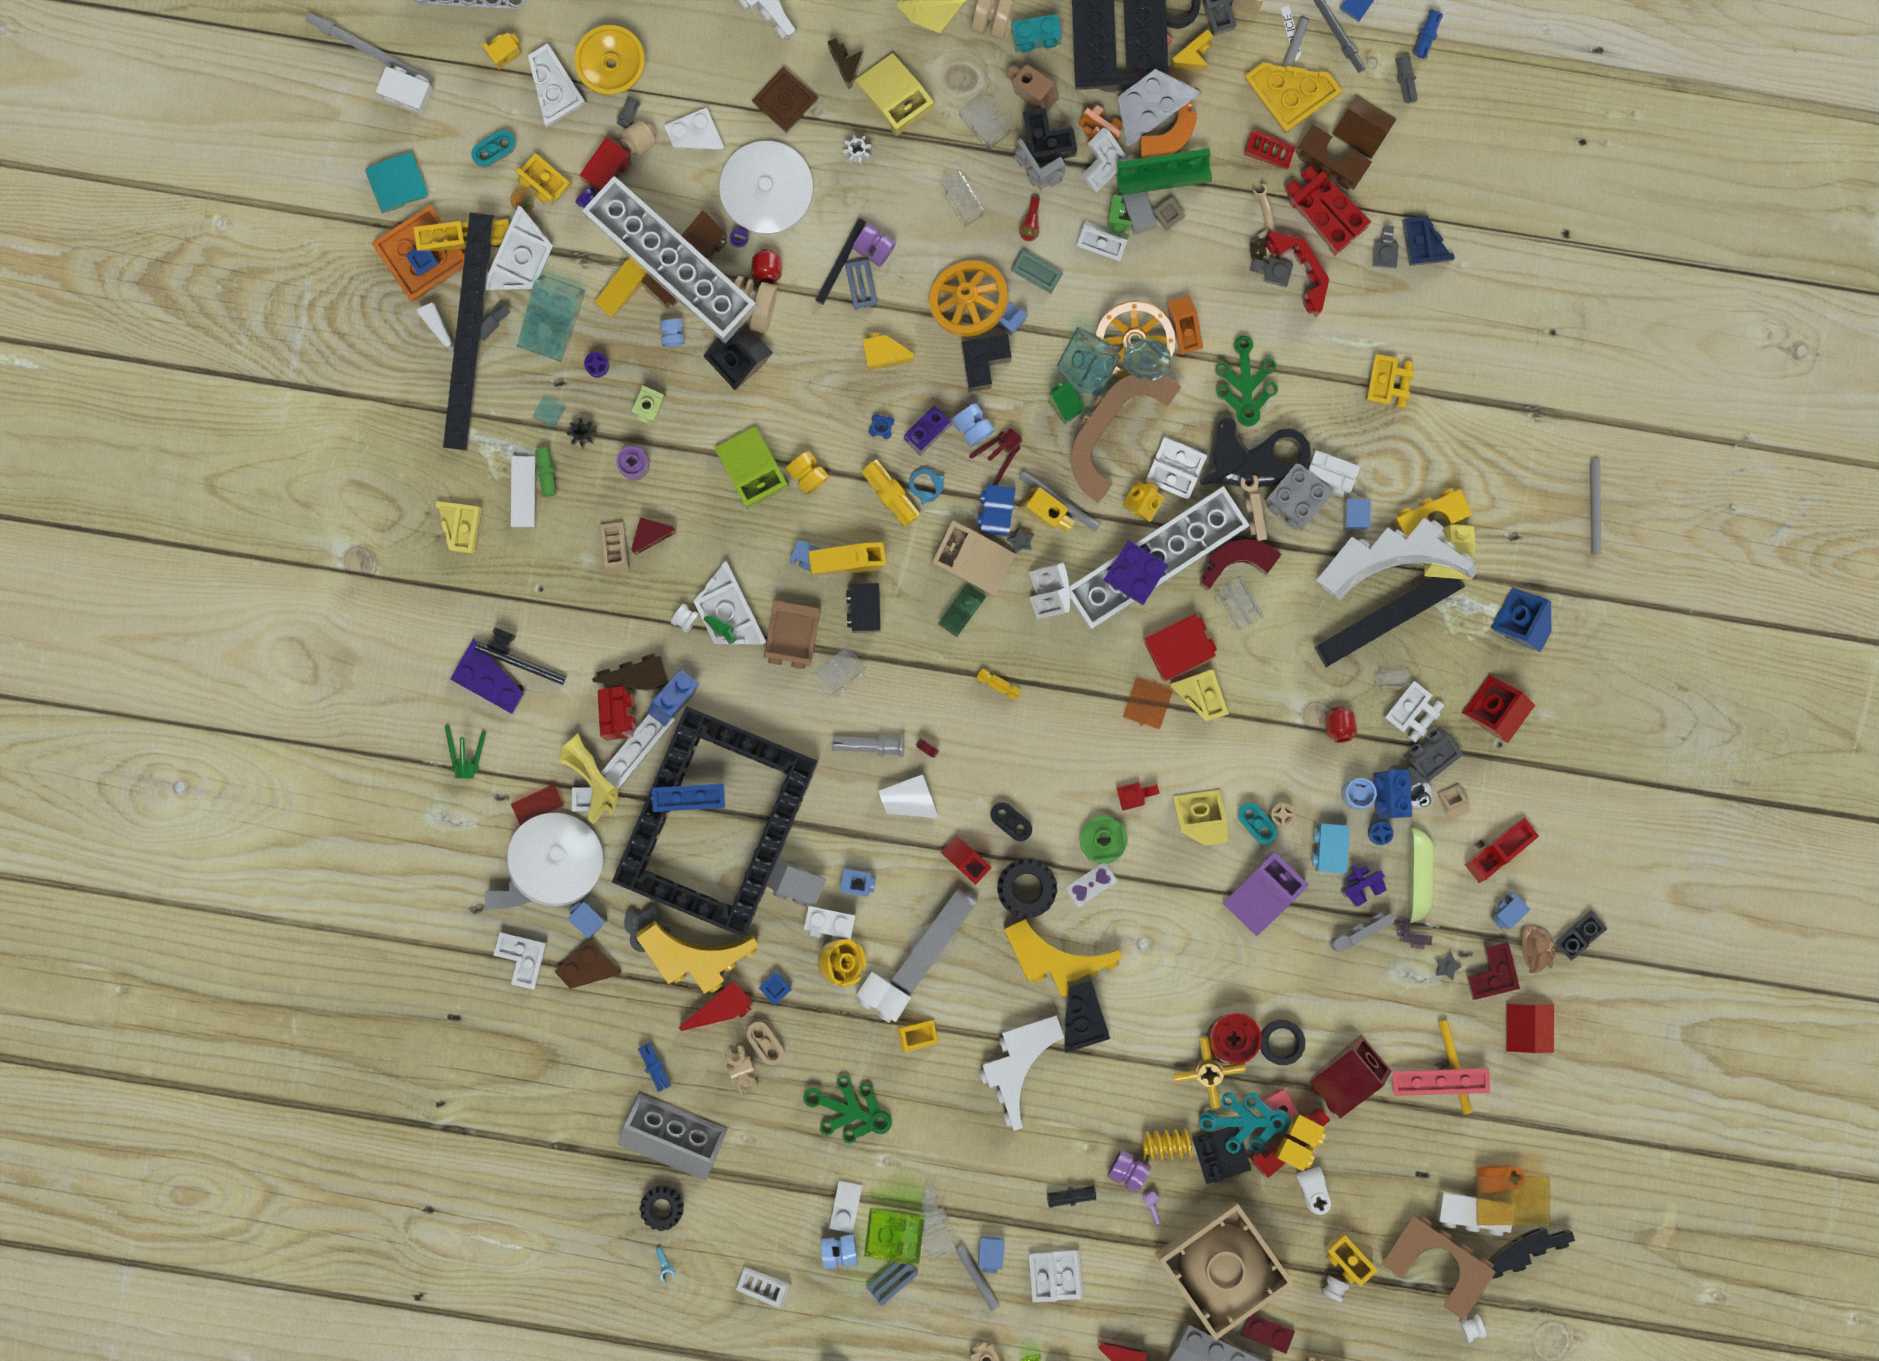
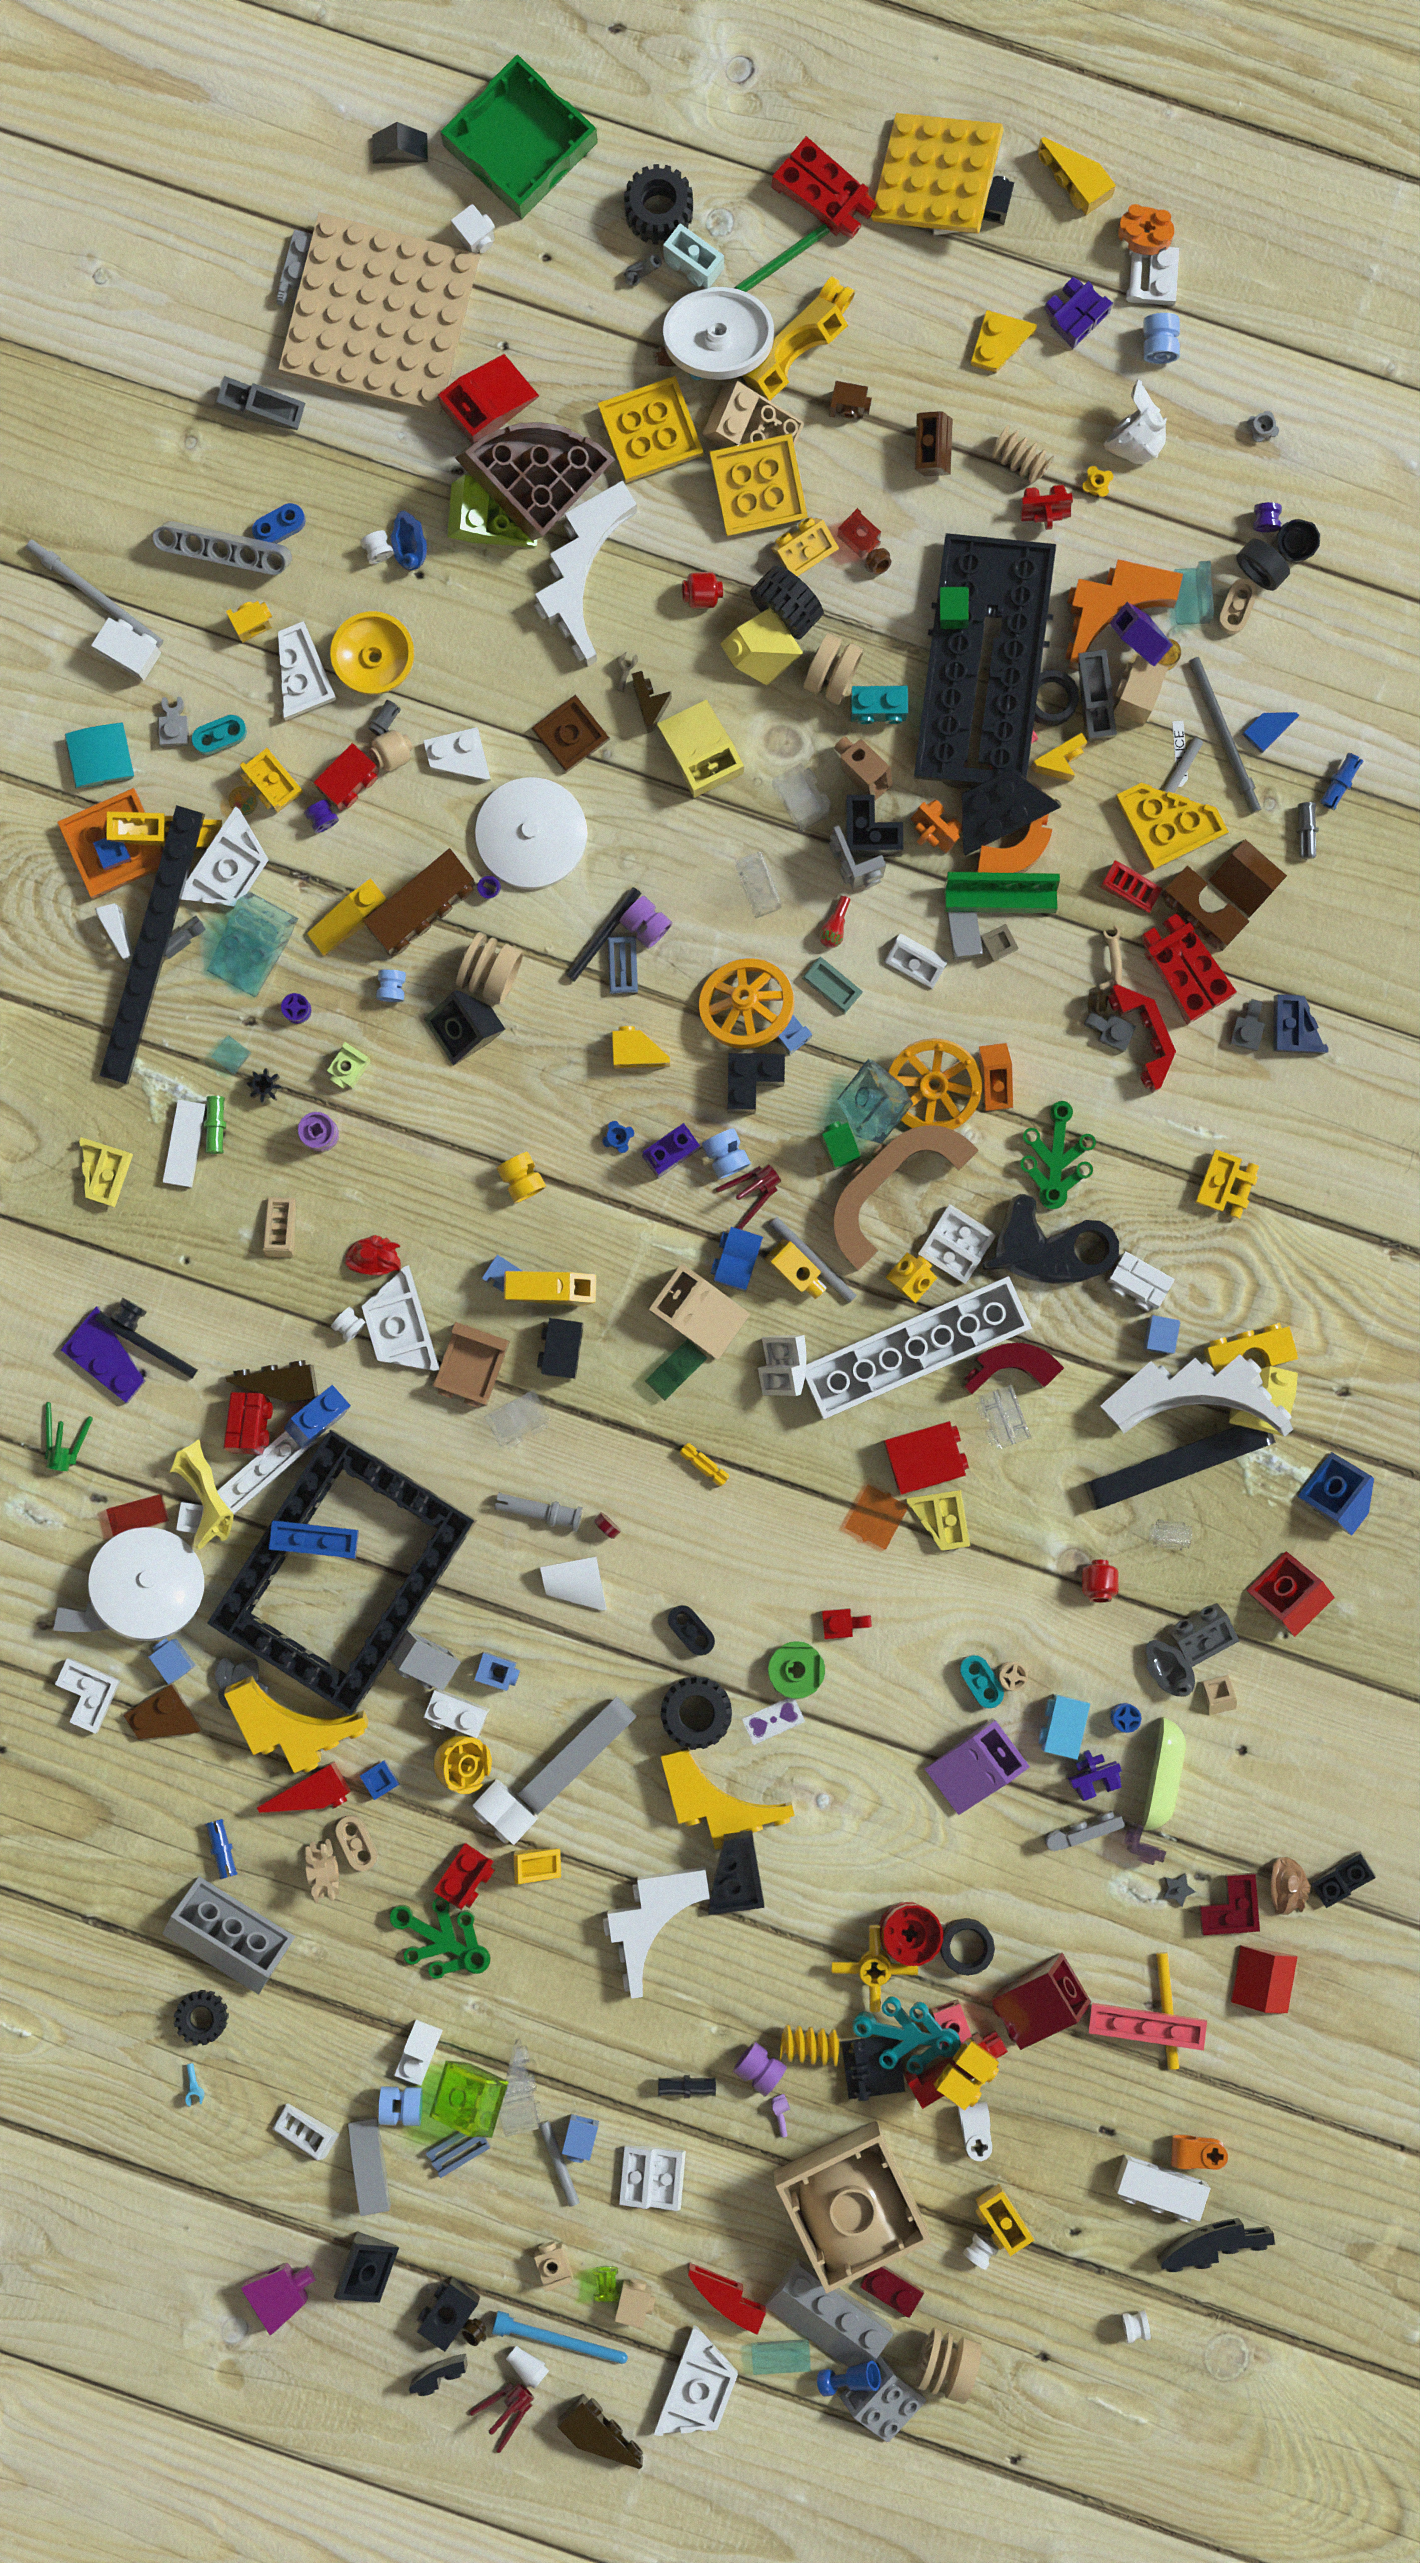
camera: 15 degrees right, 0 degrees up
(454, 149) = (173, 728): none -> light grey plate
(649, 534) = (323, 1219): dark red slope -> none
(669, 259) = (399, 900): white brick -> none
(695, 558) = (373, 1256): none -> red hat
(721, 628) = (388, 1344): green bar -> none
(751, 467) = (456, 1160): lime slope -> none
(766, 266) = (515, 926): red head -> none
(821, 40) = (625, 670): none -> dark tan hand
(821, 1306) = (369, 2167): none -> light grey slope
(858, 1056) = (464, 1876): none -> red bracket
(859, 156) = (645, 814): white gear -> none
(890, 493) = (615, 1217): yellow piece -> none
(923, 495) = (654, 1227): dark azure piece -> none
(932, 943) = (572, 1759): clear piece -> none
(966, 860) = (630, 1667): red slope -> none
(1021, 540) = (759, 1299): dark grey piece -> none
(1108, 154) = (939, 861): white plate -> none
(1116, 211) = (938, 928): bright green bracket -> none
(1135, 572) = (887, 1361): dark purple plate -> none
(1147, 359) = (944, 1111): clear light blue tile -> none
(1202, 817) = (917, 1663): light yellow slope -> none
(1254, 506) = (1041, 1305): tan plate -> none
(1298, 497) = (1095, 1303): light grey bracket -> none
(1359, 793) = (1108, 1667): light blue wheel -> none
(1393, 794) = (1147, 1675): blue bracket -> none
(1409, 706) = (1185, 1573): white plate -> none
(1420, 1237) = (1148, 2262): medium nougat arch -> none
(1501, 850) = (1265, 1763): red slope -> none
(1510, 911) = (1263, 1837): medium blue brick -> none
(1513, 1200) = (1209, 2184): clear yellow tile -> none

